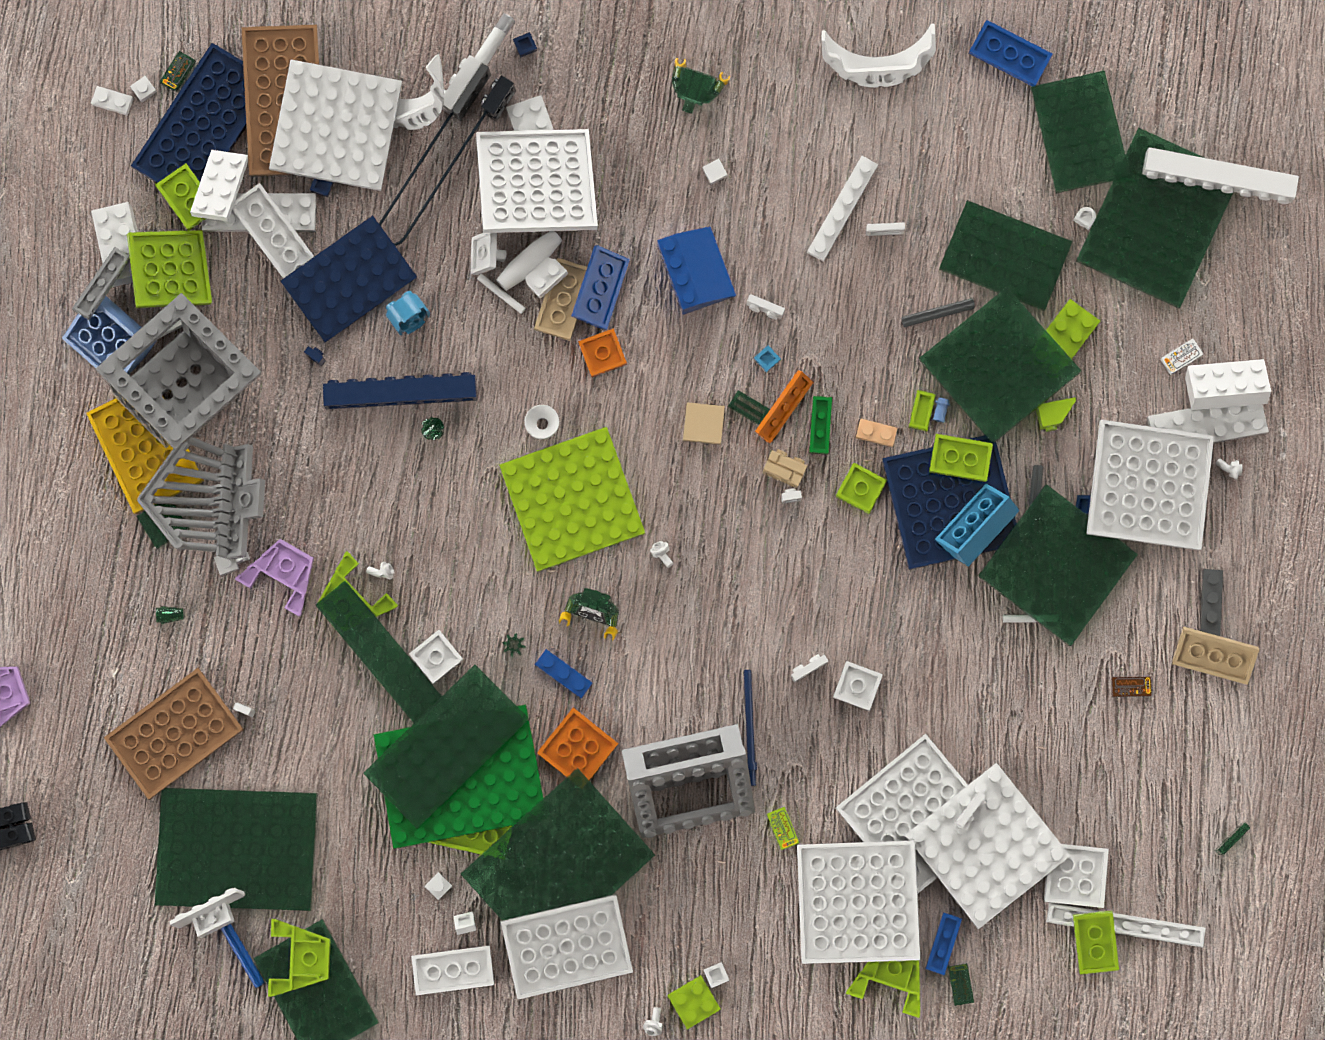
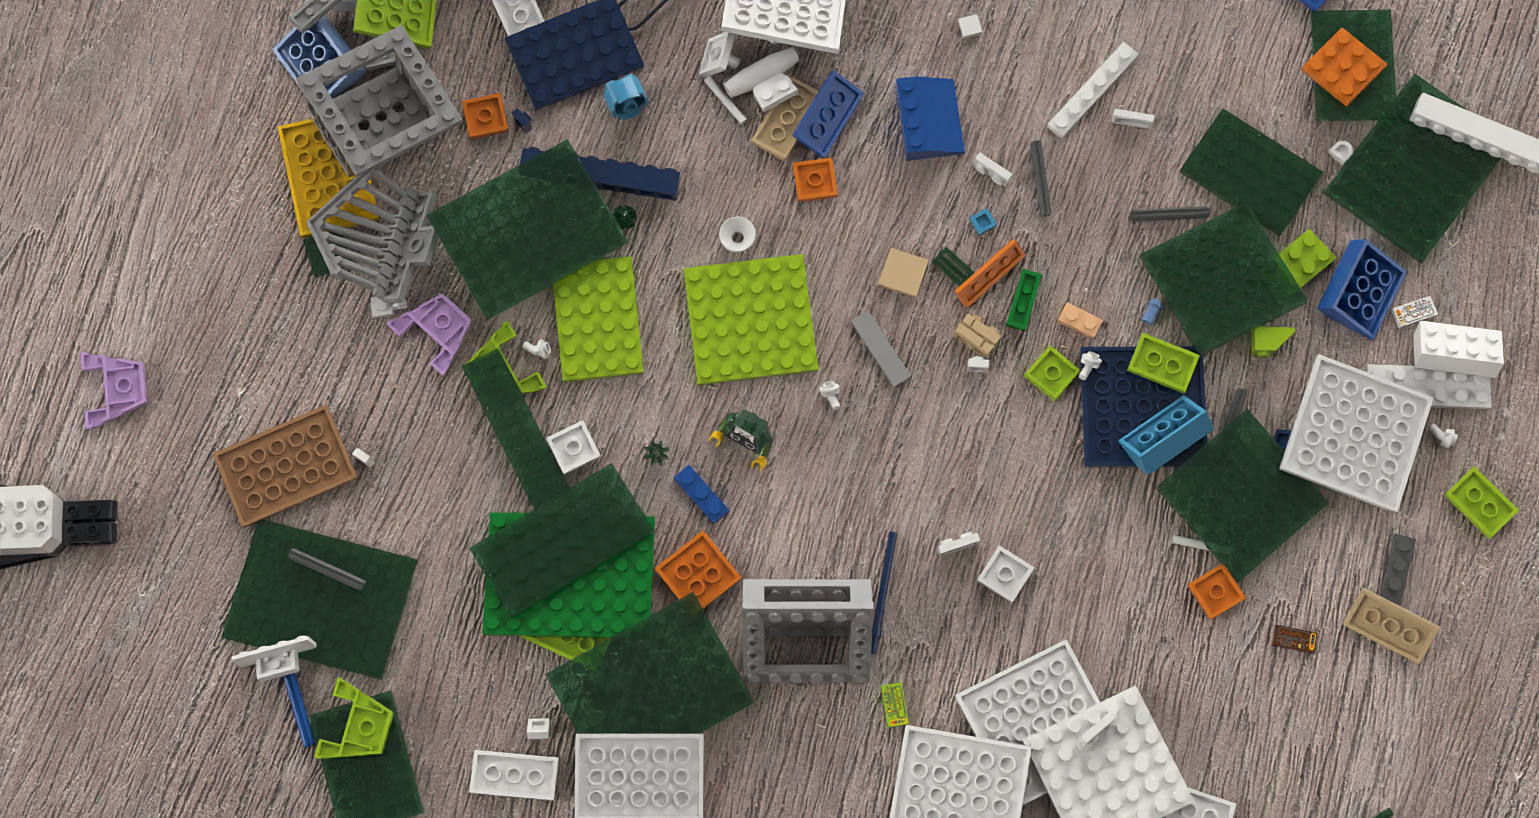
camera: 10 degrees right, 5 degrees down
(168, 614) = (309, 344): clear green cone -> none
(236, 821) = (327, 569): none -> dark grey axle
(279, 359) = (485, 116): none -> orange plate
(345, 462) = (527, 229): none -> clear green plate
(430, 530) = (599, 322): none -> lime plate
(438, 886) = (520, 684): white plate -> none
(698, 500) = (880, 349): none -> light grey tile
(812, 304) = (1040, 178): none -> dark grey axle
(895, 470) = (1091, 361): none -> white plate
(922, 410) = (1132, 308): lime tile -> none
(1052, 659) = (1216, 591): none -> orange plate
(1071, 137) = (1344, 67): none -> orange plate
(1129, 345) = (1362, 288): none -> blue slope
(1275, 522) = (1481, 502): none -> lime plate

